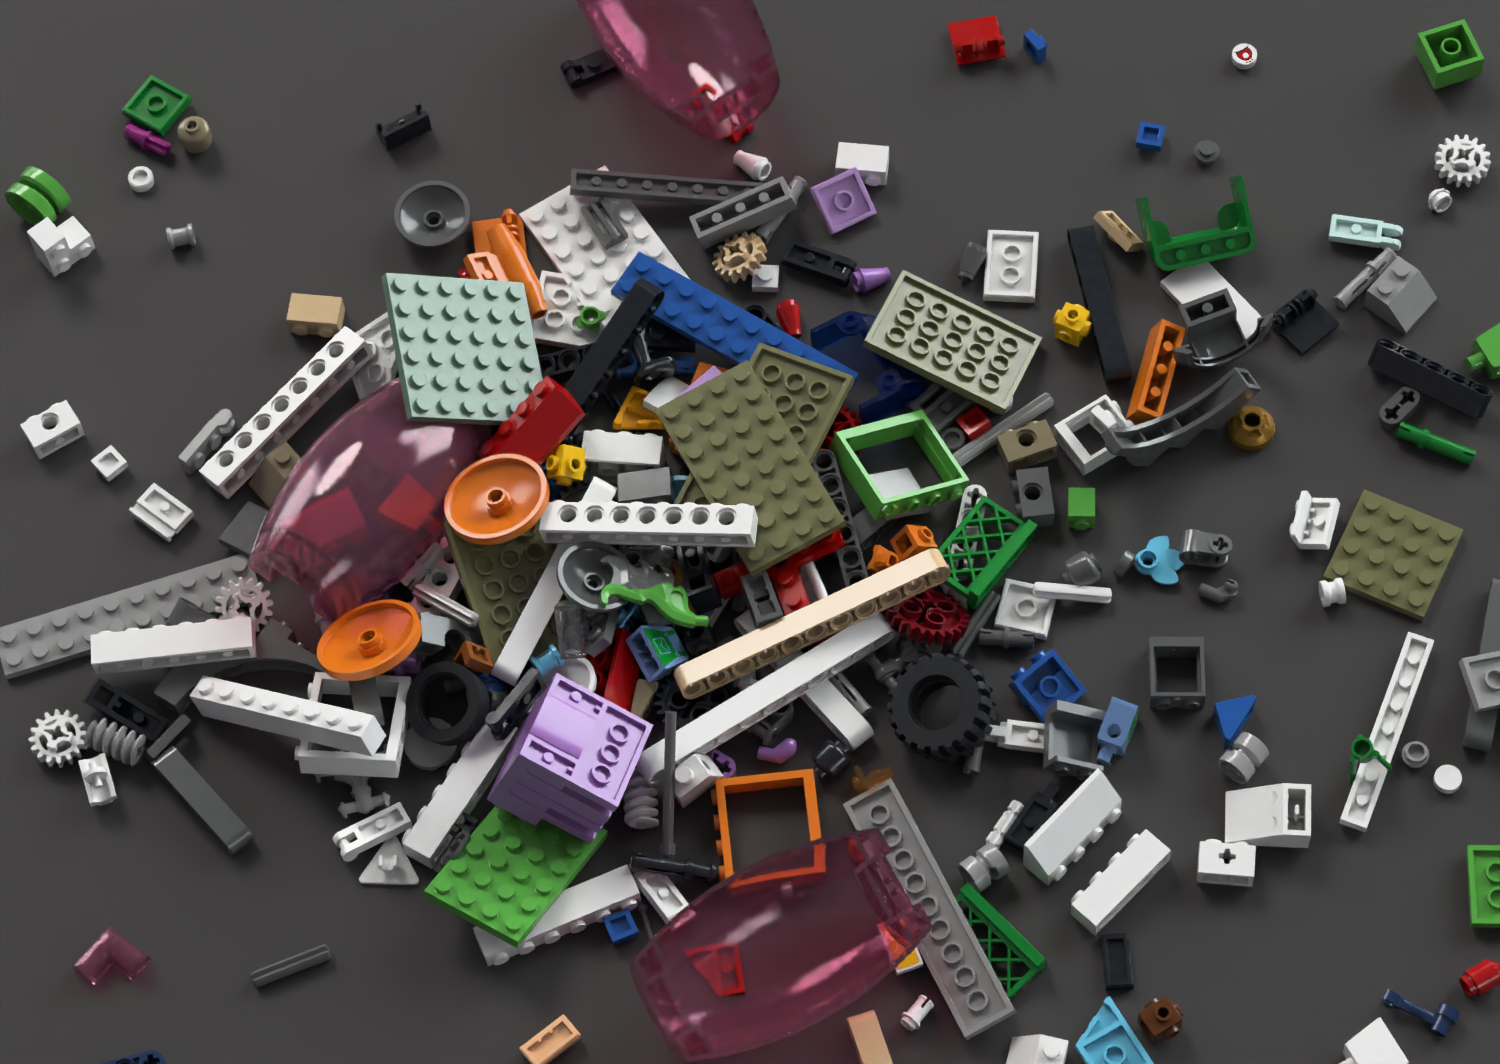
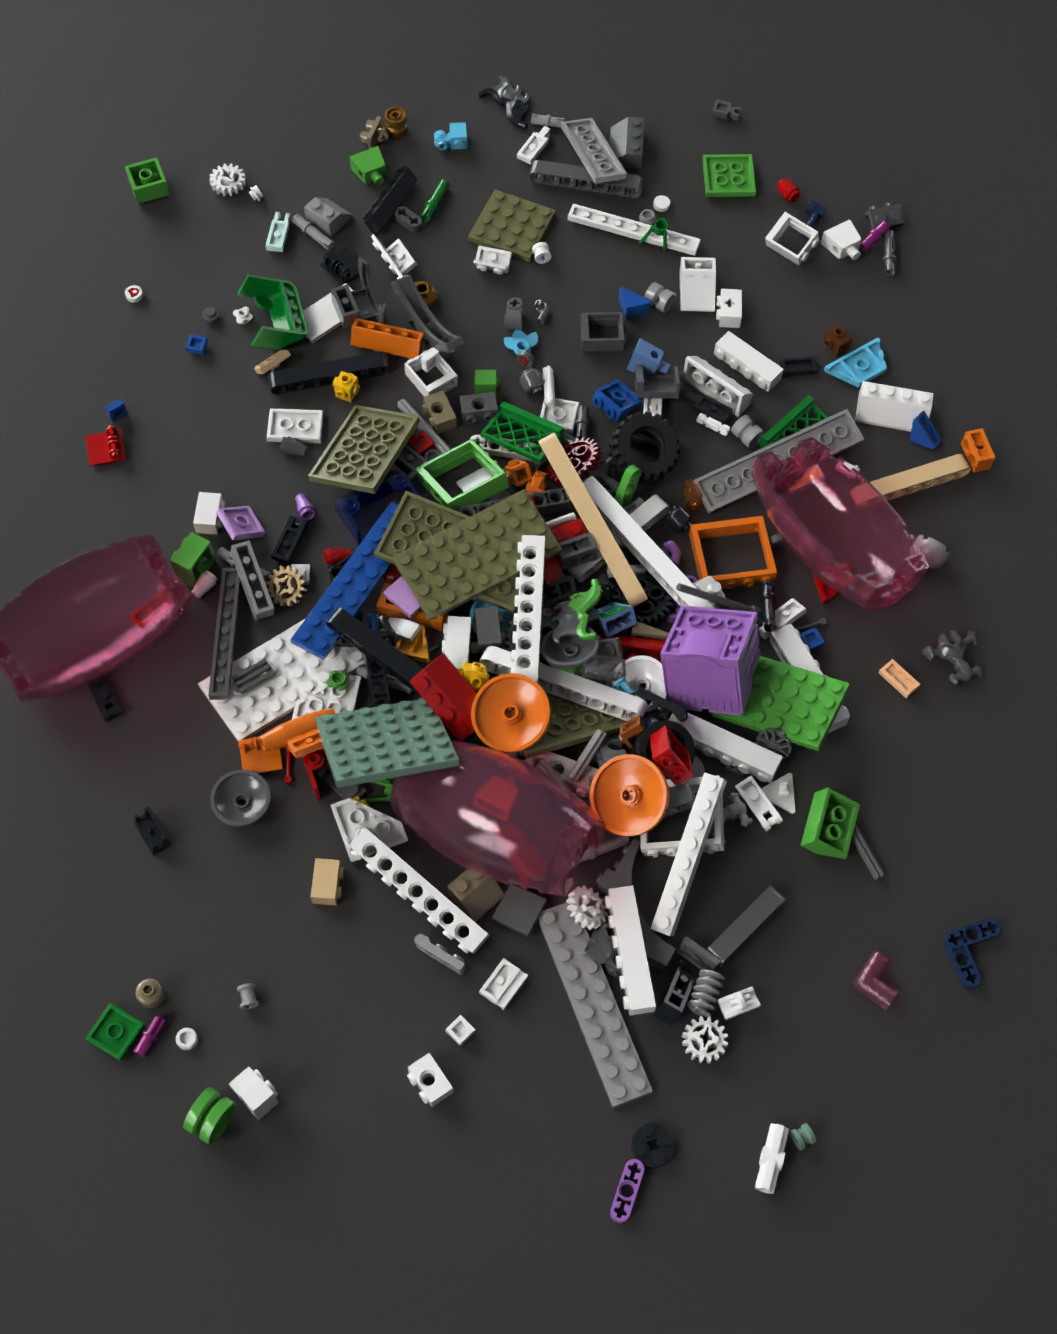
camera: 100 degrees left, 0 degrees up
(329, 918) = (830, 824): none -> bright green slope
(441, 706) = (671, 759): none -> red window
(782, 143) = (192, 558): none -> bright green brick
(873, 680) = (627, 486): none -> bright green beam
(1205, 198) = (243, 315): none -> white plate
(1312, 388) = (397, 255): none -> white bracket
(1379, 944) = (780, 227): none -> white window

